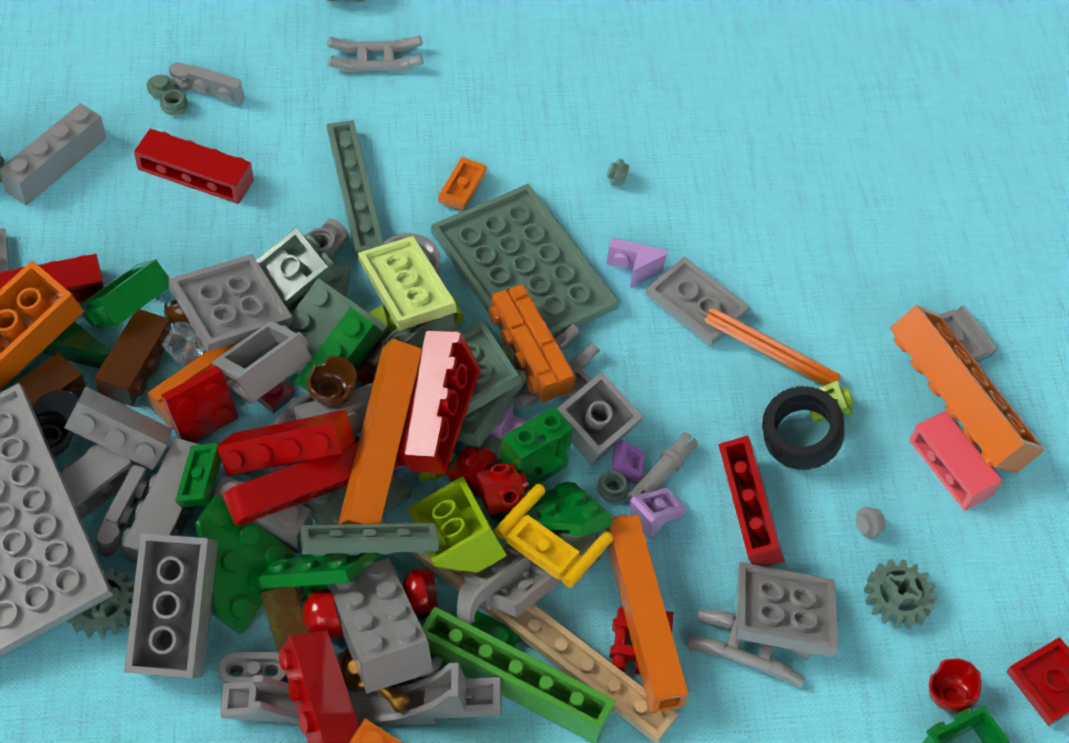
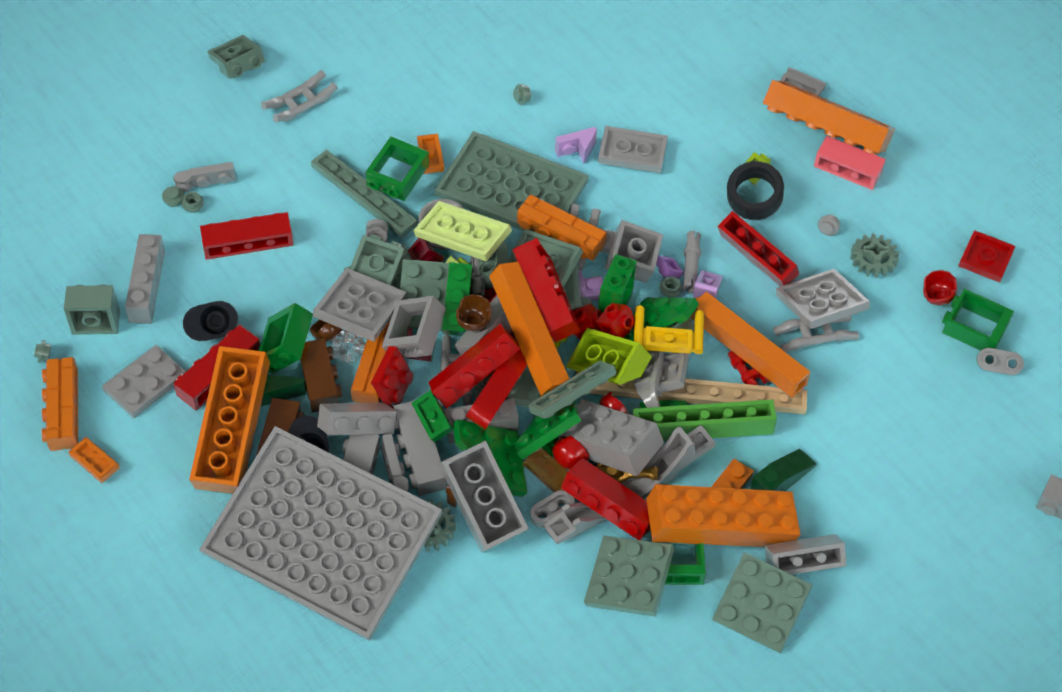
camera: 30 degrees left, 0 degrees up
(71, 232) = (210, 320): none -> black piece
(358, 288) = (423, 251): none -> dark red bracket
(413, 196) = (402, 152): none -> green window
(771, 347) = (699, 153): orange axle -> none

